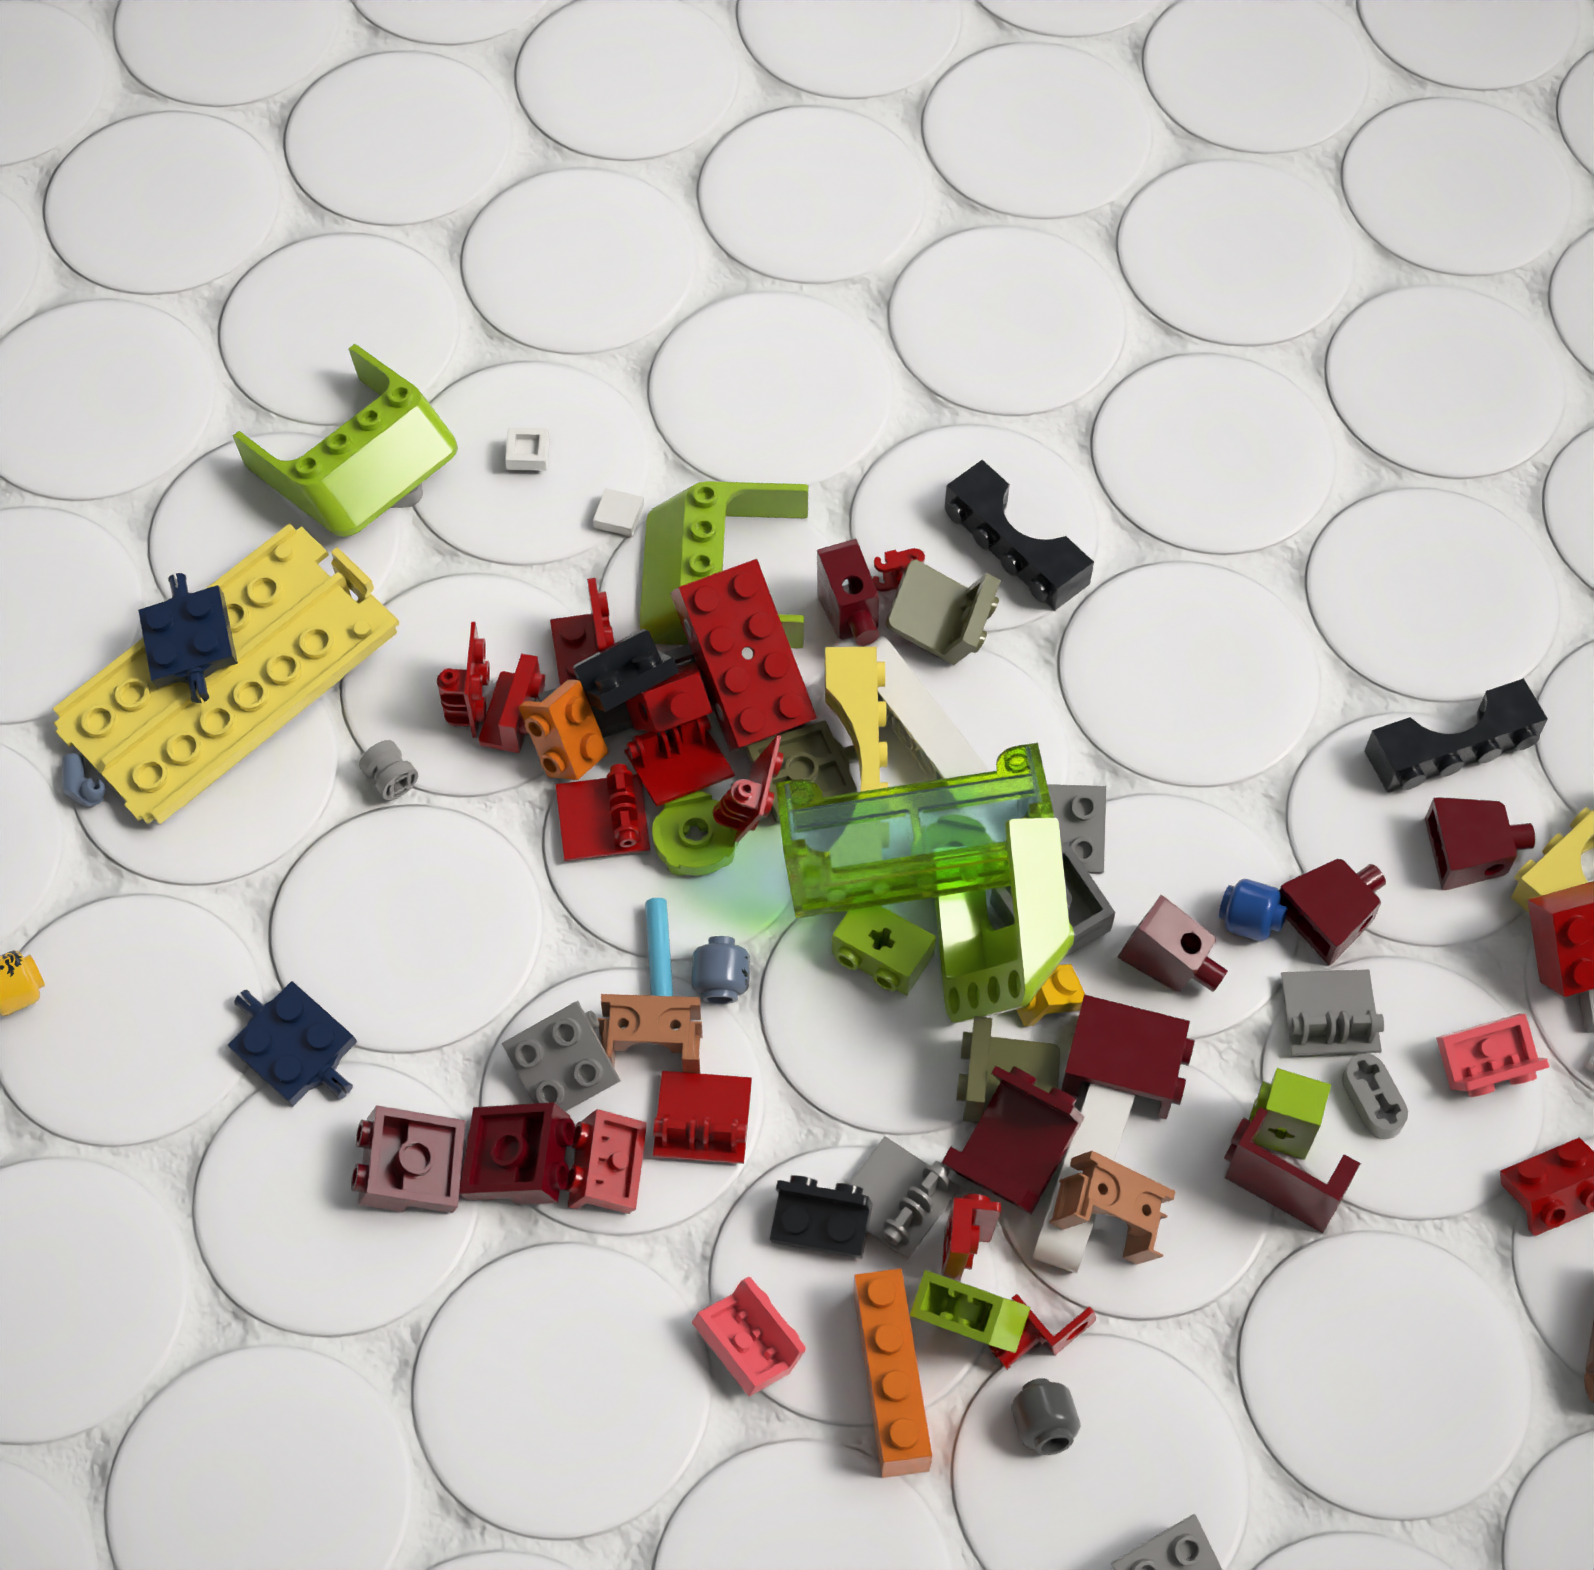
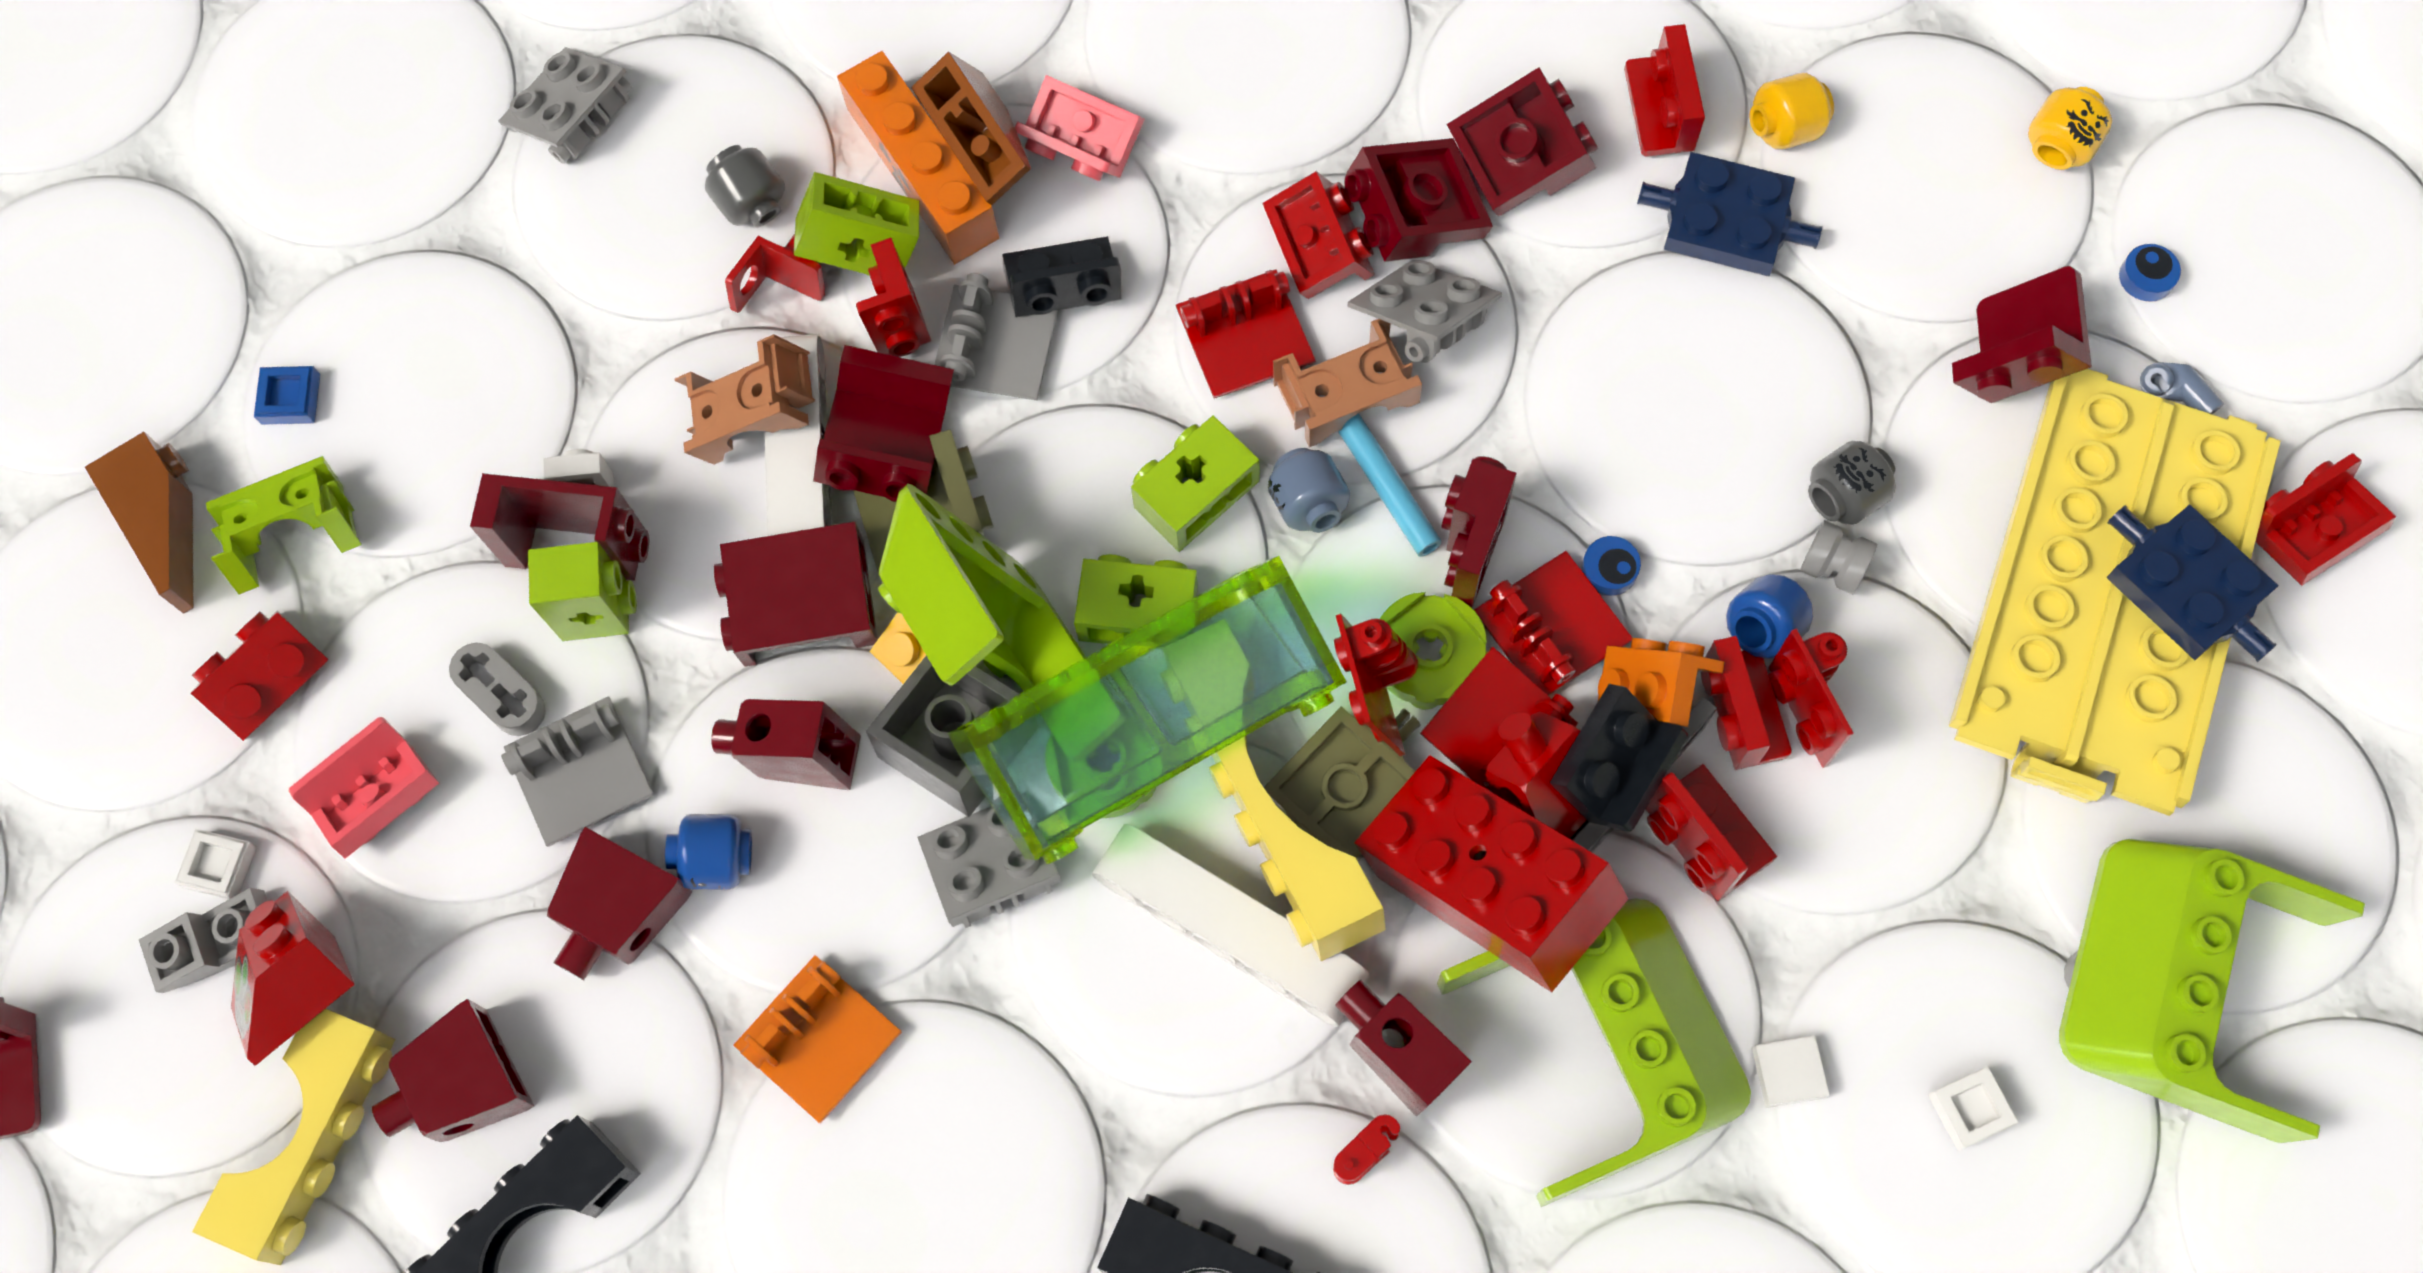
camera: 160 degrees right, 10 degrees up
(34, 868) = (2149, 272): none -> blue tile
(64, 655) = (2321, 520): none -> red bracket
(162, 840) = (2028, 337): none -> dark red bracket
(194, 1093) = (1792, 110): none -> yellow head
(279, 1147) = (1666, 96): none -> red bracket
(346, 808) = (1852, 482): none -> dark grey head
(461, 749) = (1767, 613): none -> blue head
(539, 838) = (1611, 565): none -> blue tile
(617, 875) = (1475, 520): none -> dark red plate
(815, 997) = (1187, 508): none -> lime brick
(834, 1357) = (973, 125): none -> dark orange slope
(942, 612) = (1272, 1099): bracket -> none
(1220, 773) = (817, 1039): none -> orange hinge
(1263, 1225) = (579, 467): none -> white plate
(1487, 1415) = (287, 395): none -> blue tile
(1514, 1295) = (300, 493): none -> lime piece

